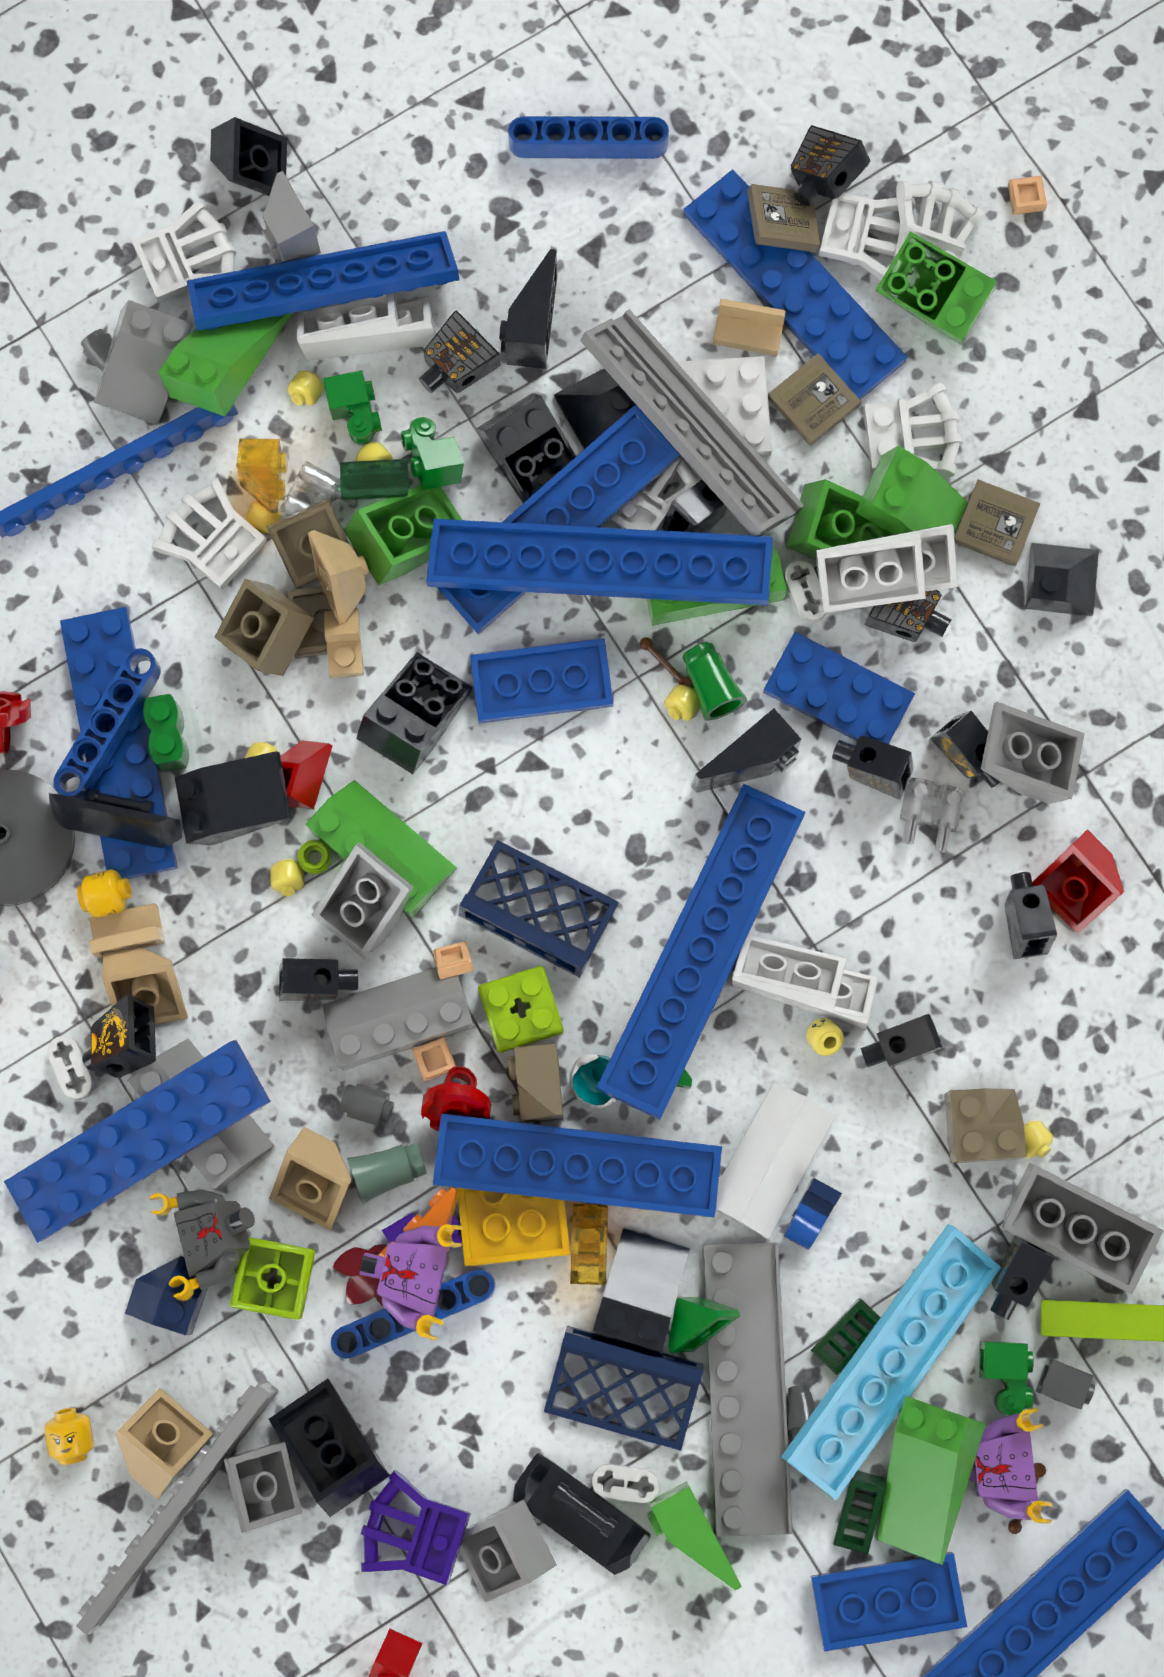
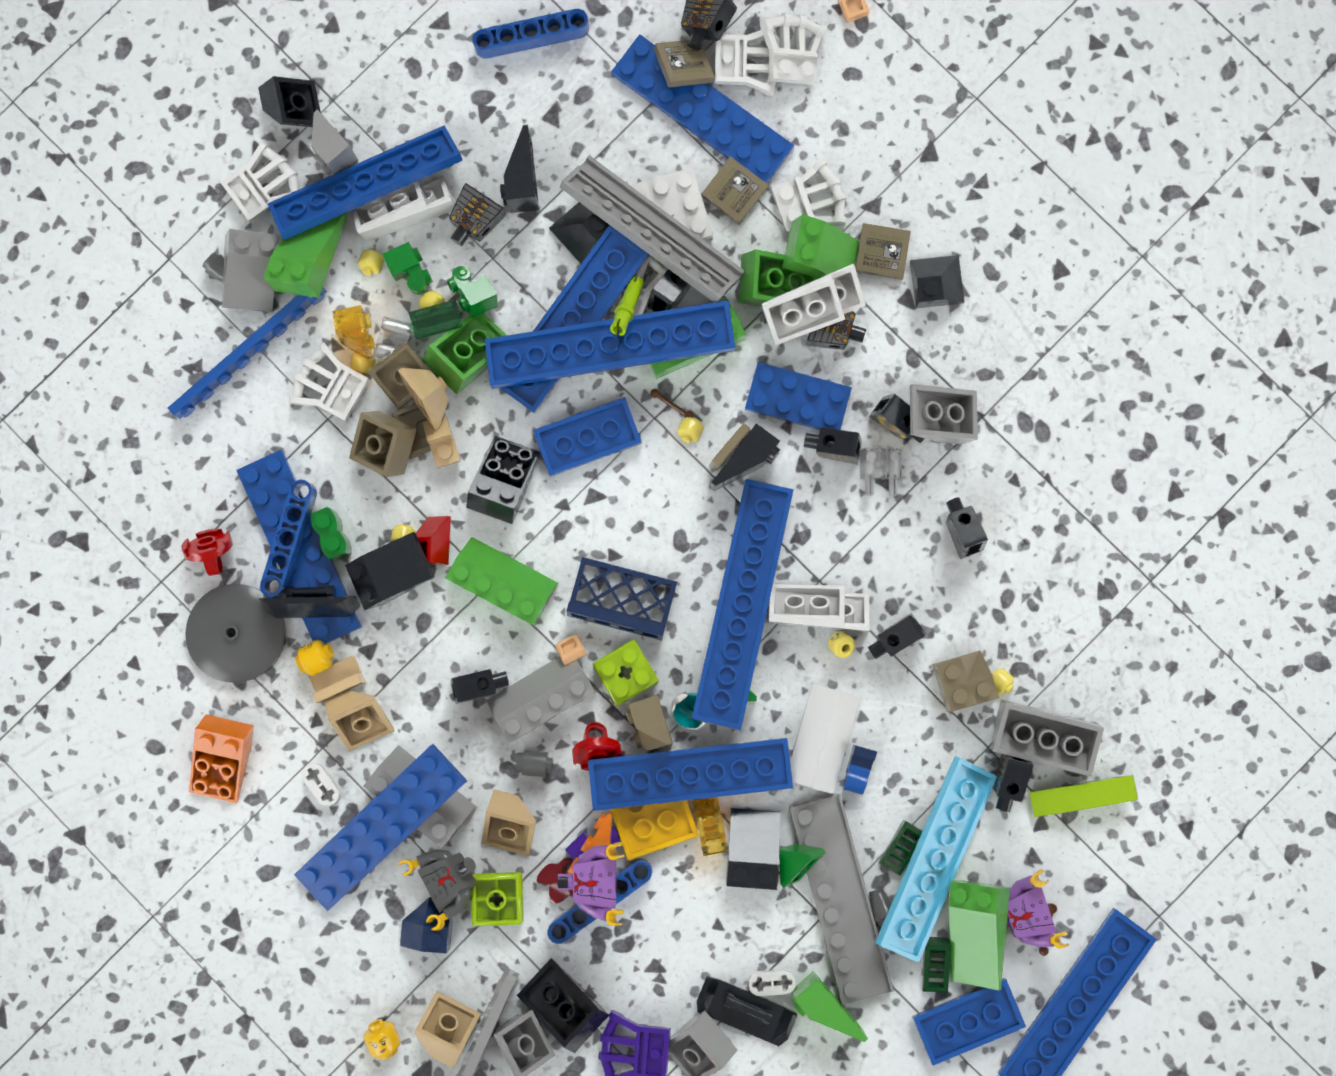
camera: 10 degrees left, 5 degrees up
(123, 1038) = (353, 757): black torso -> none
(287, 877) = (440, 616): light yellow piece -> none
(310, 847) = (456, 590): lime plate -> none
(363, 901) = (498, 624): light grey slope -> none
(386, 1170) = (557, 806): sand green plant -> none
(434, 1059) = (573, 720): light nougat tile -> none
(527, 444) = (538, 269): black slope -> none
(630, 520) = (625, 311): none -> lime pin
(630, 1357) = (740, 896): dark blue fence -> none
(712, 682) = (707, 411): green plant -> none
(729, 734) = (729, 447): none -> dark tan tile
(749, 327) = (676, 148): tan panel -> none
(798, 595) = (754, 334): white beam -> none
(936, 287) = (804, 90): bright green slope -> none
(1011, 1365) = (1017, 841): green brick -> none
(1065, 1384) = (1058, 846): dark grey brick -> none
(1081, 882) = (996, 495): red slope -> none

